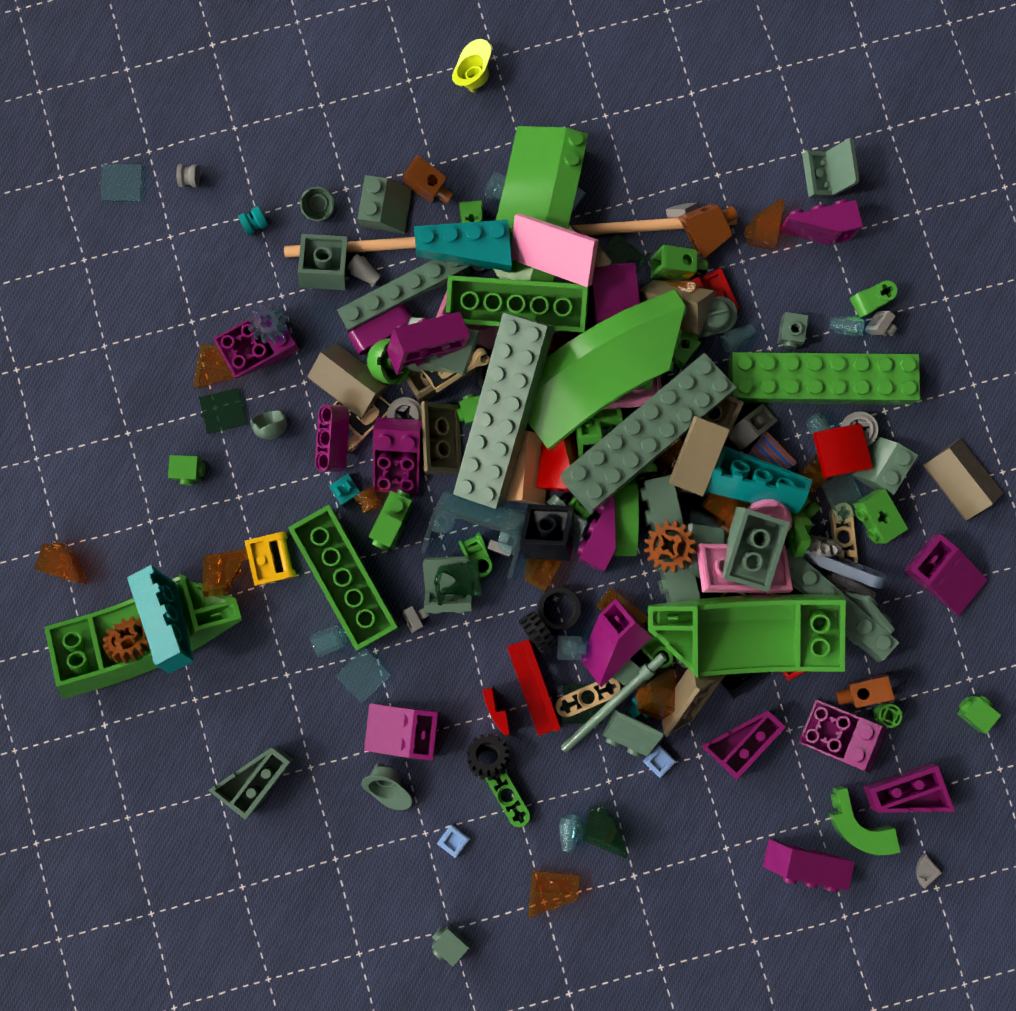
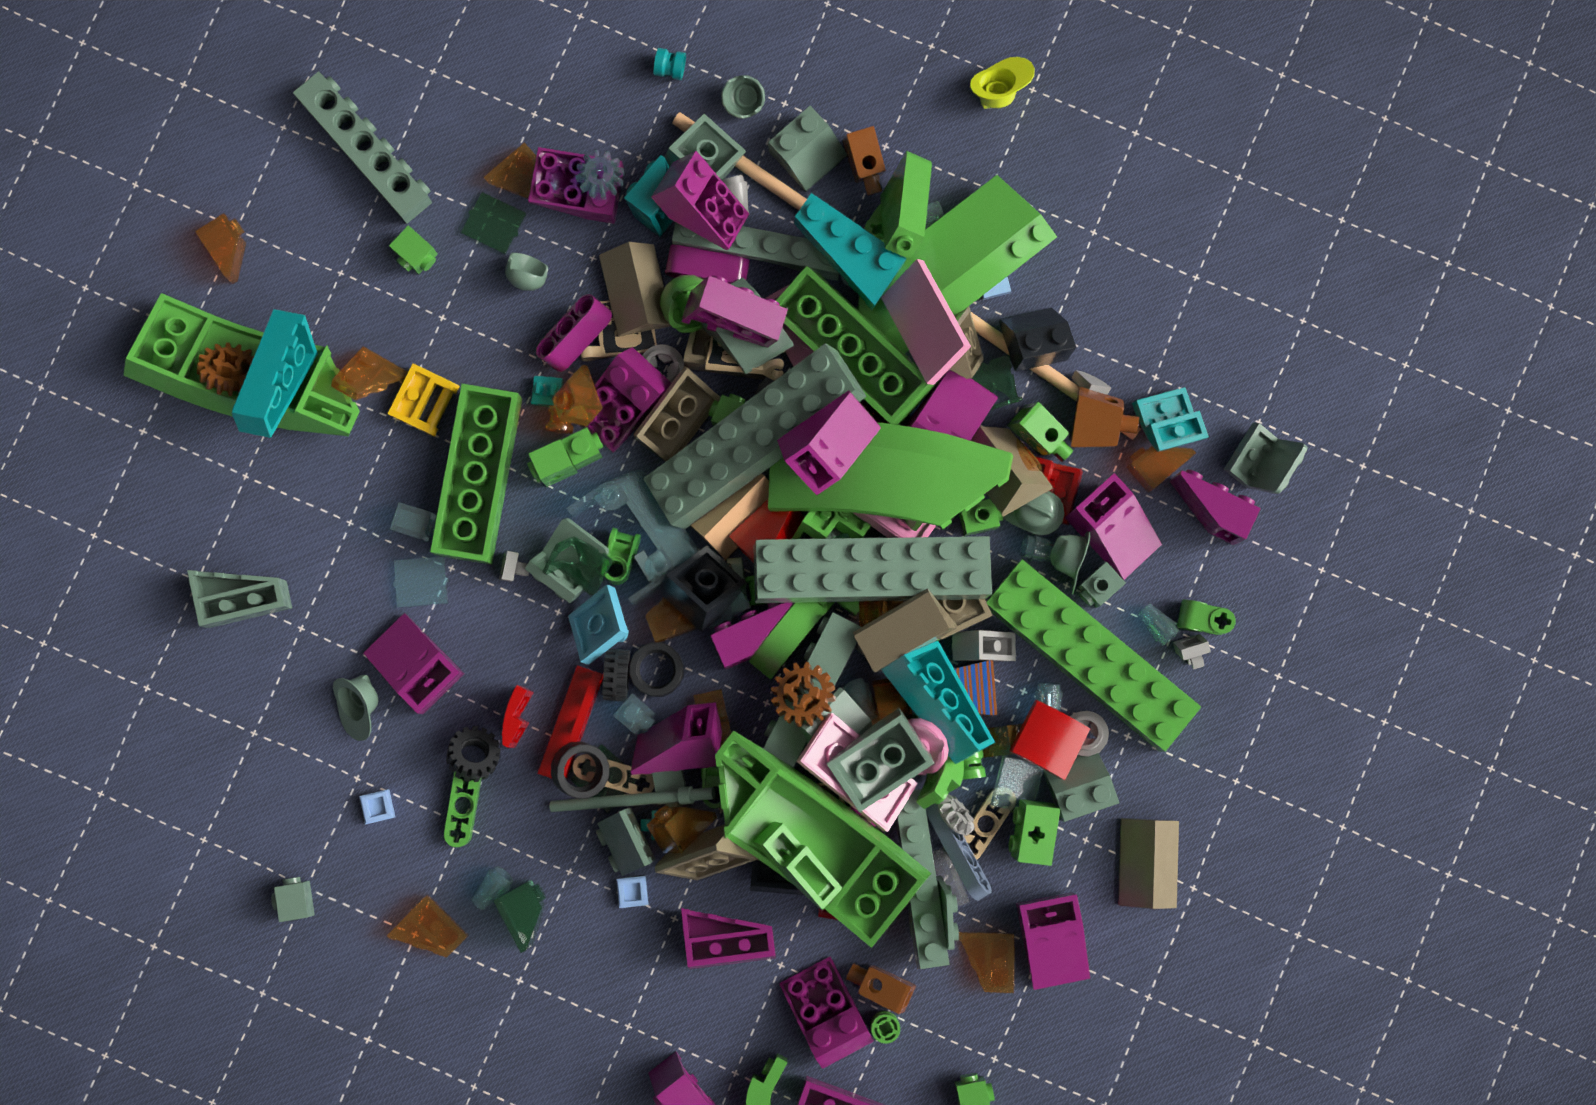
camera: 30 degrees right, 0 degrees up
(40, 423) = (313, 96): none -> sand green brick
(312, 312) = (640, 201): none -> teal slope
(346, 288) = (700, 201): none -> magenta slope
(370, 477) = (578, 399): none -> clear orange slope
(478, 188) = (905, 205): none -> bright green slope
(500, 610) = (598, 624): none -> medium azure tile
(556, 373) = (828, 442): none -> magenta slope
(582, 707) = (599, 779): none -> black tyre
(627, 208) = (1037, 338): none -> black slope
(750, 192) = (1170, 420): none -> teal slope
(756, 656) = (798, 864): none -> bright green slope
(761, 326) = (1069, 554): none -> sand green piece
(771, 285) = (1116, 526): none -> slope
(918, 617) = (992, 958): none -> clear orange wing

